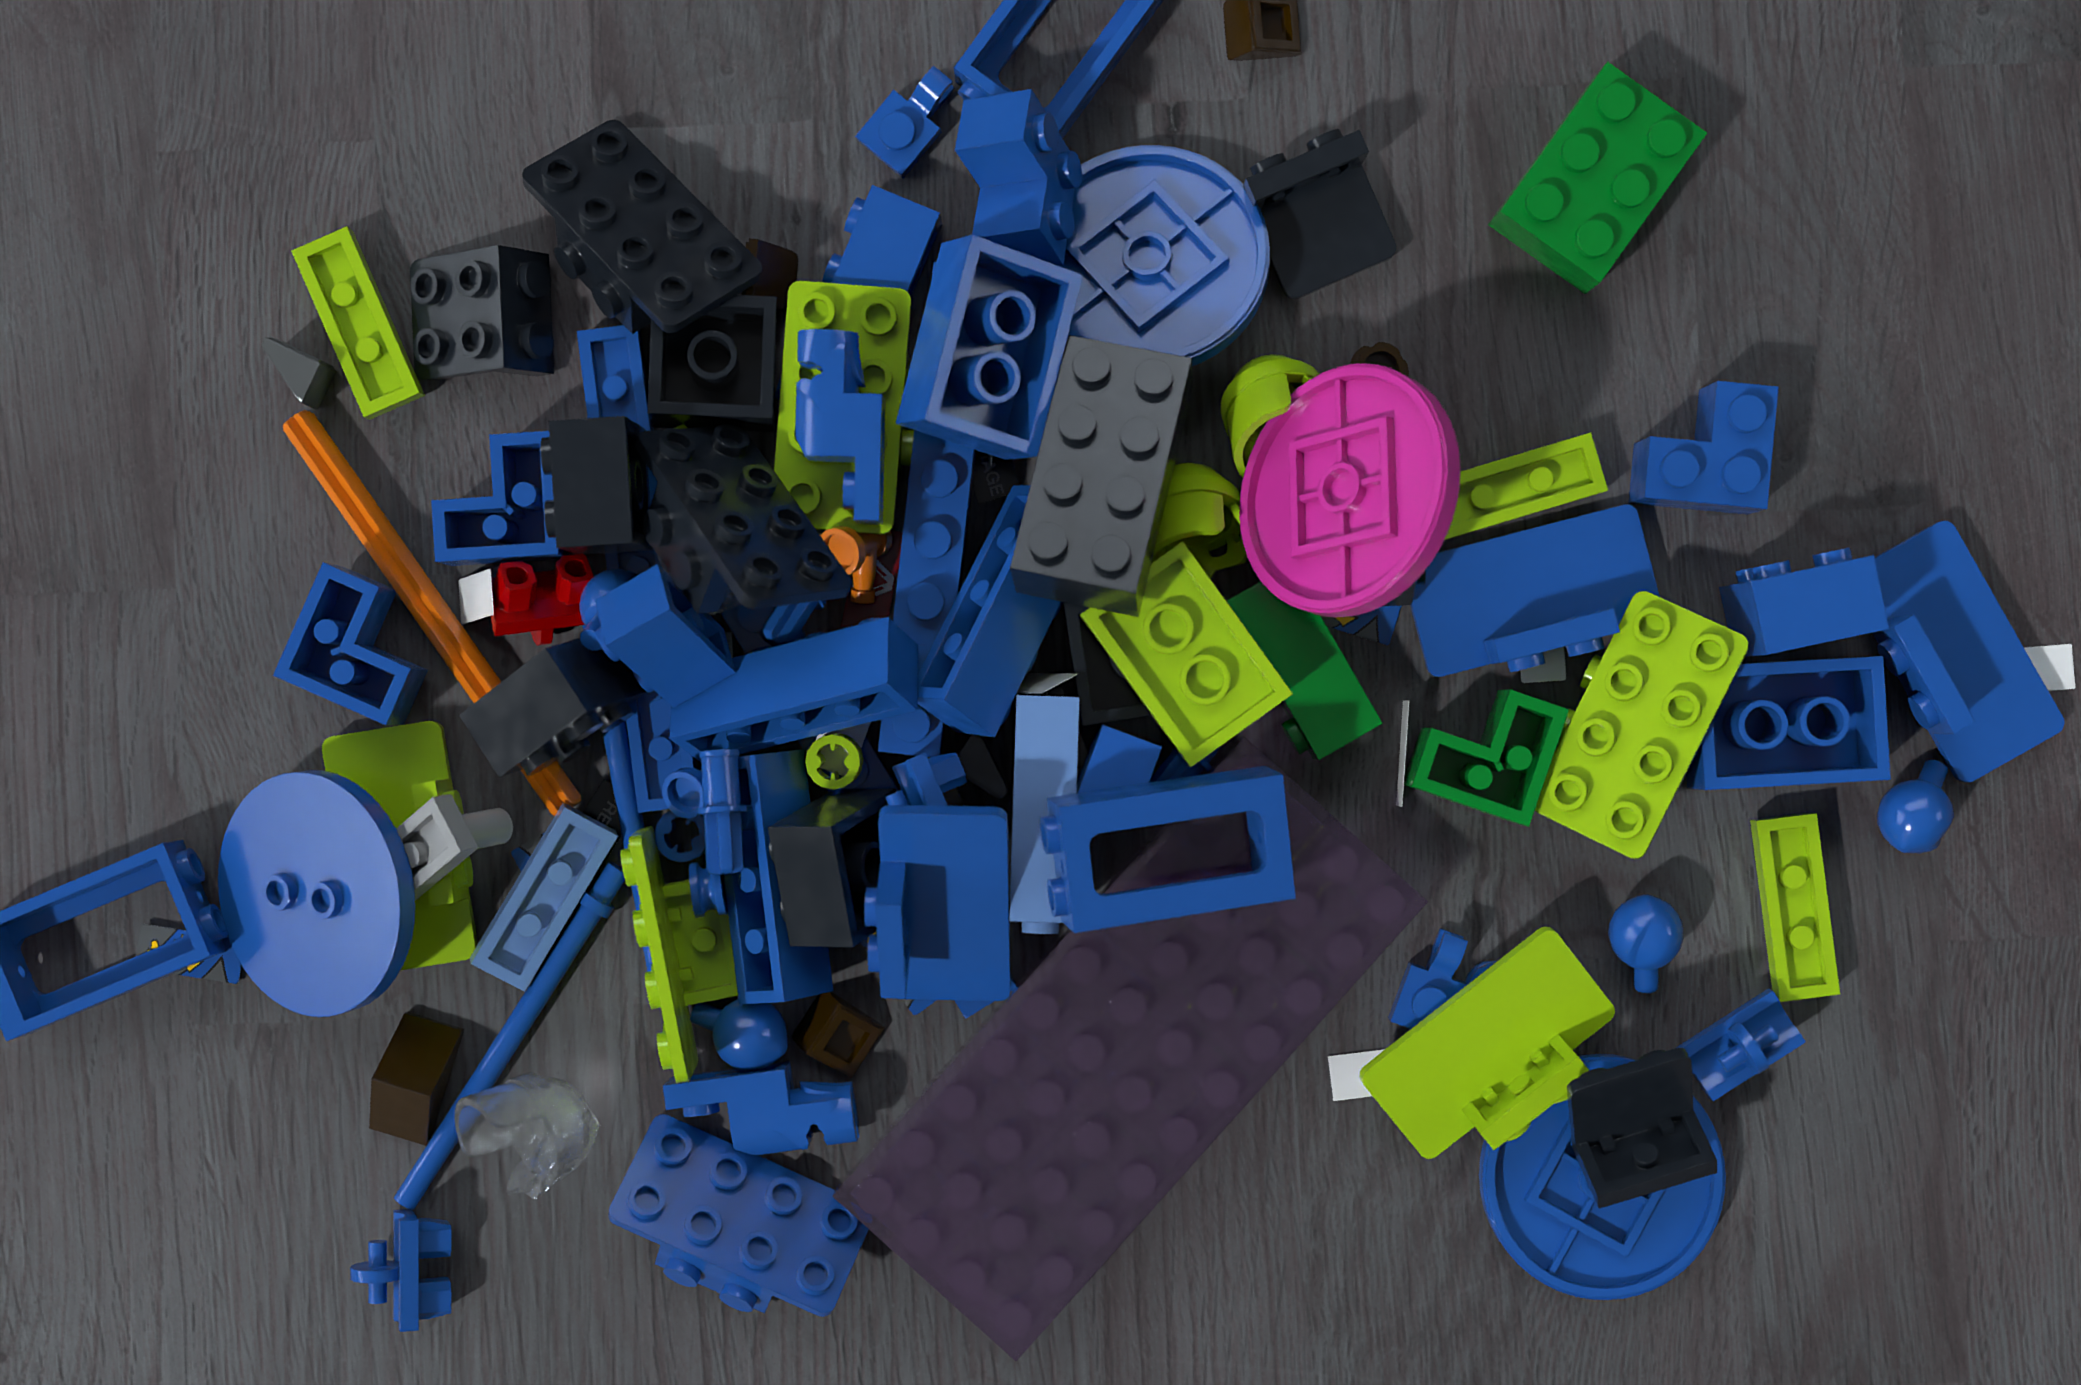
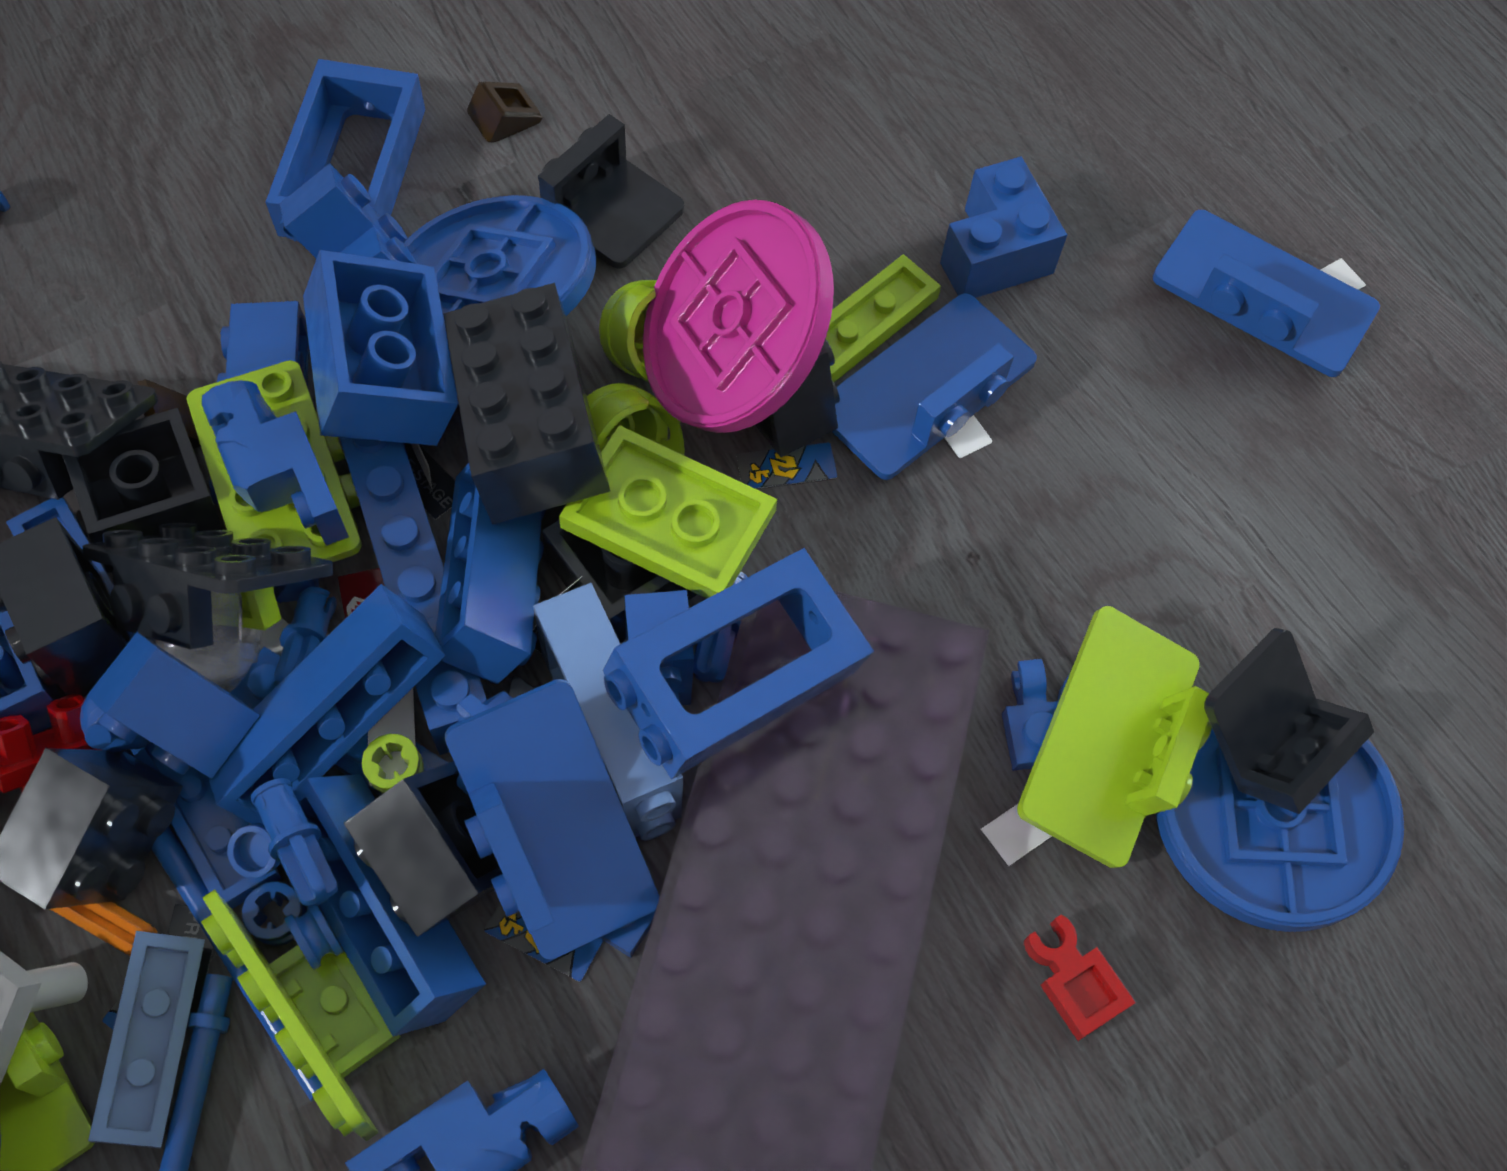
camera: 30 degrees left, 25 degrees down
(744, 1034) = (412, 1072): blue piece -> none
(837, 1033) = (511, 1033): dark brown slope -> none
(858, 557) = (348, 582): orange piece -> none
(902, 128) = (247, 273): blue plate -> none
(1327, 698) = (804, 511): green brick -> none
(1332, 1238) = (1082, 986): none -> red plate
(1402, 755) = (897, 544): white sticker -> none
(1501, 772) = (978, 515): green brick -> none
(1597, 178) = (804, 99): green brick -> none
(1639, 723) = (1071, 419): lime bracket -> none
(1646, 937) = (1182, 588): blue piece -> none
(1741, 1044) = (1321, 630): blue hips -> none
(1795, 906) = (1281, 517): lime plate -> none
(1797, 726) = (1179, 379): blue brick -> none
(1807, 606) = (1133, 286): blue brick -> none
(1917, 811) = (1321, 404): blue piece -> none

